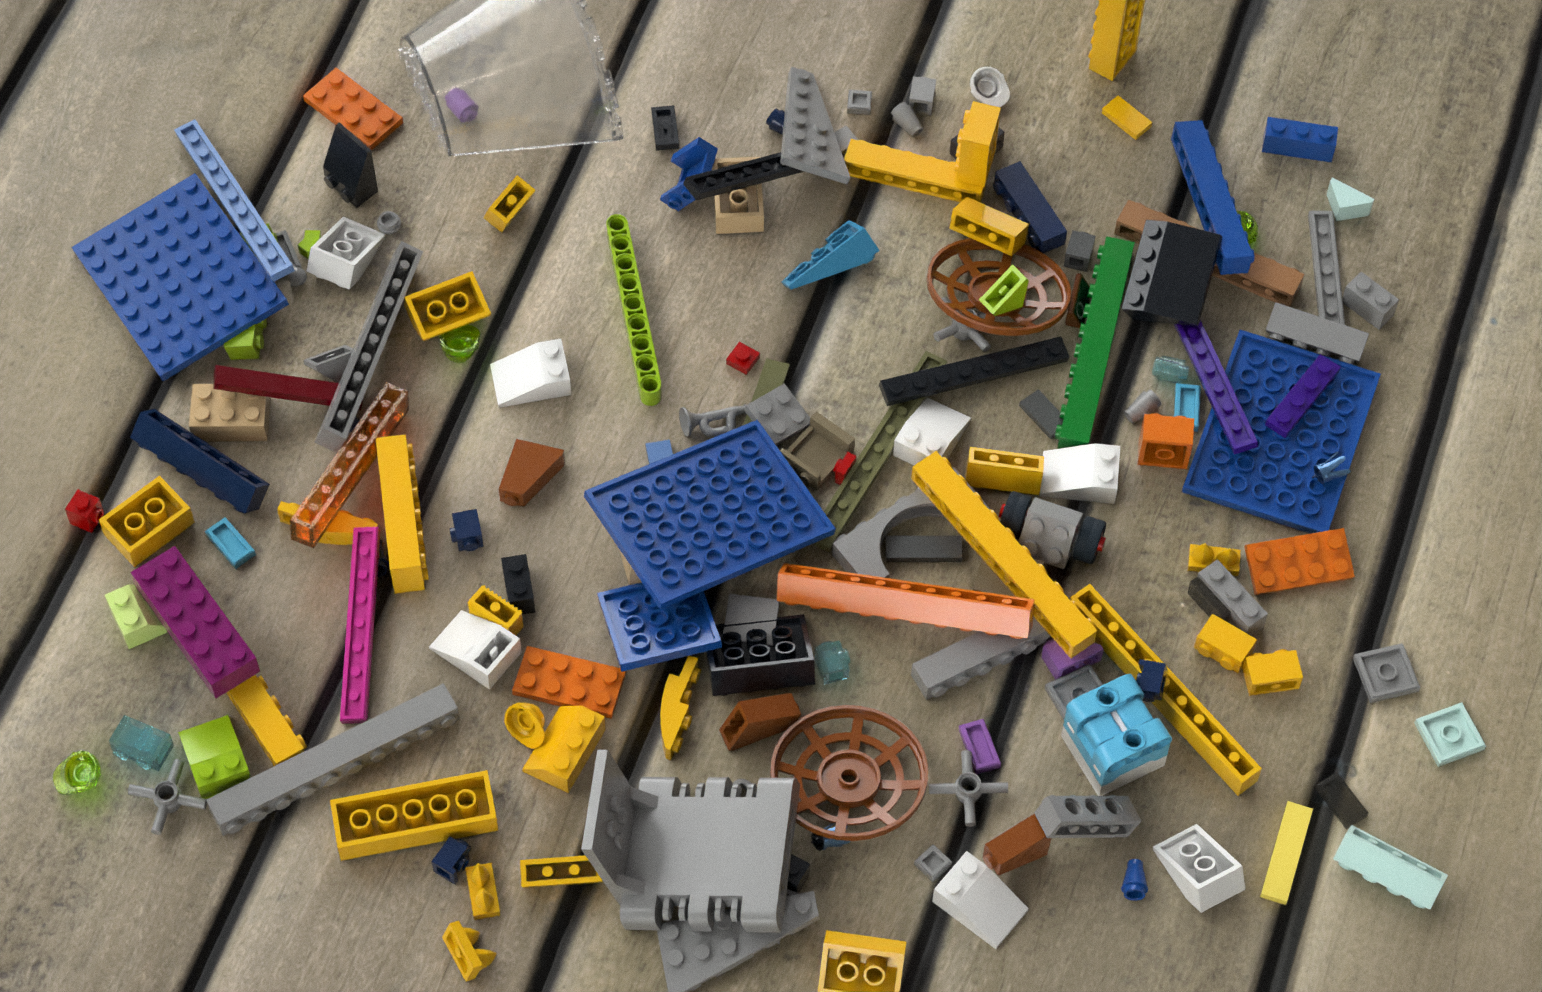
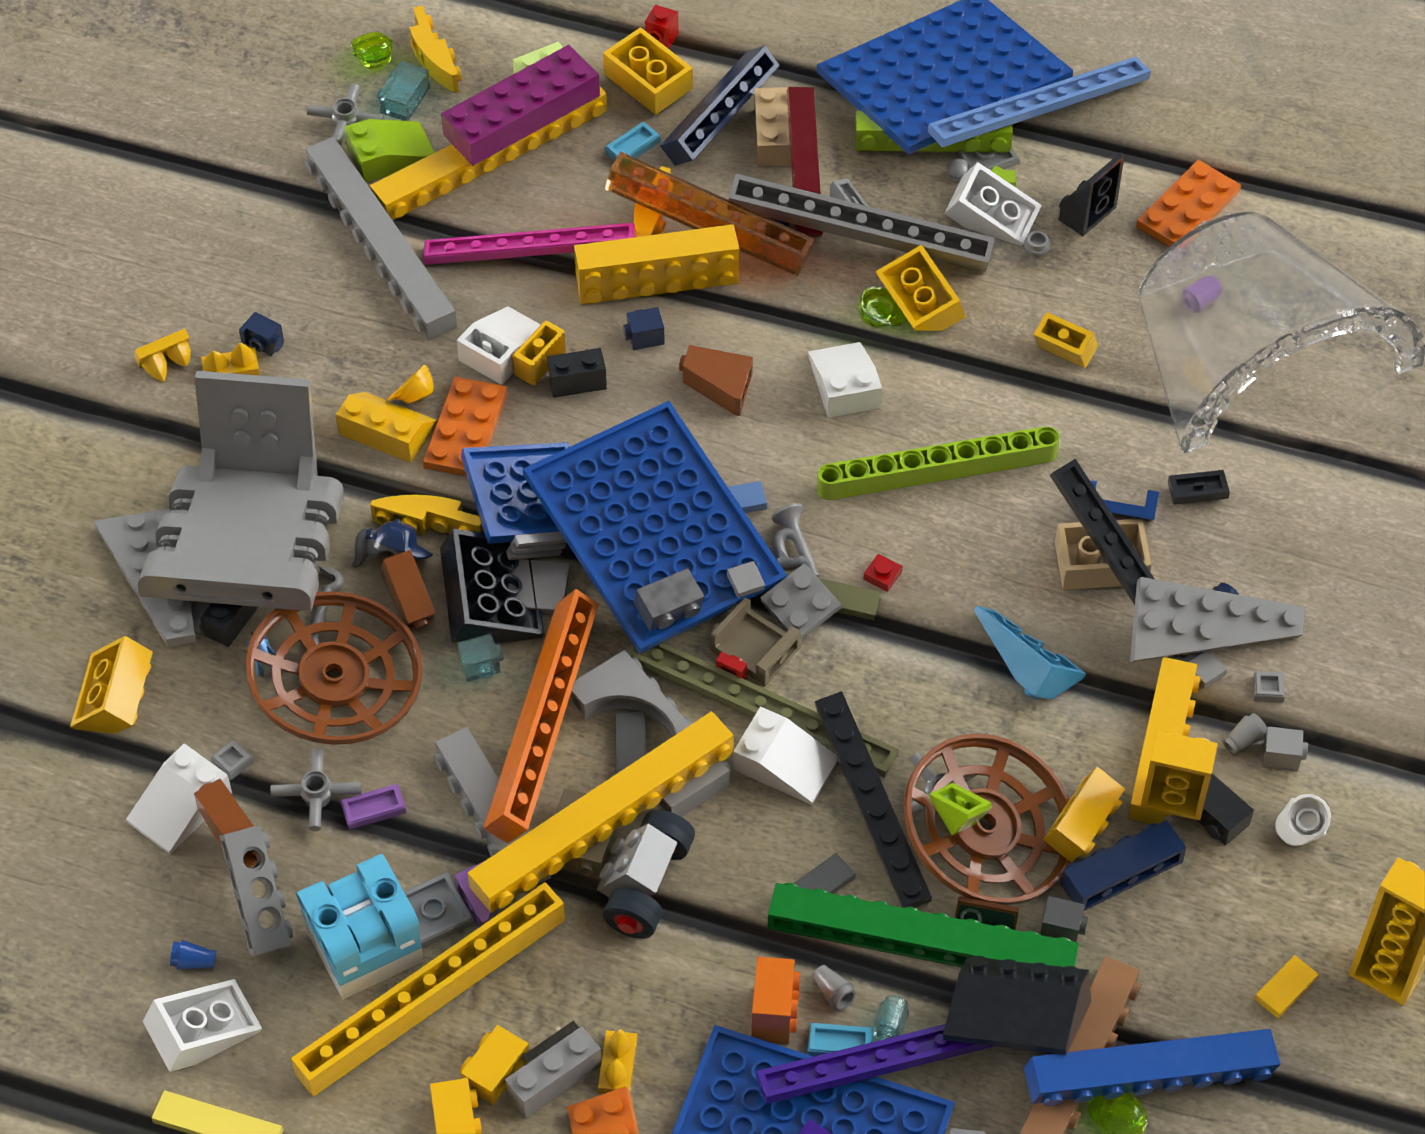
camera: 90 degrees right, 5 degrees down
(98, 715) = (432, 52): none -> yellow slope
(413, 815) = (309, 299): yellow brick -> none
(708, 735) = (390, 537): none -> dark blue hair
(718, 612) = (536, 545): none -> light grey tile
(766, 446) = (745, 579): none -> light grey tile
(795, 498) = (669, 600): none -> flat silver brick
(1004, 470) = (728, 826): yellow brick -> none
(1081, 473) = (733, 918): white slope -> none
(1152, 679) = (422, 956): dark blue brick -> none

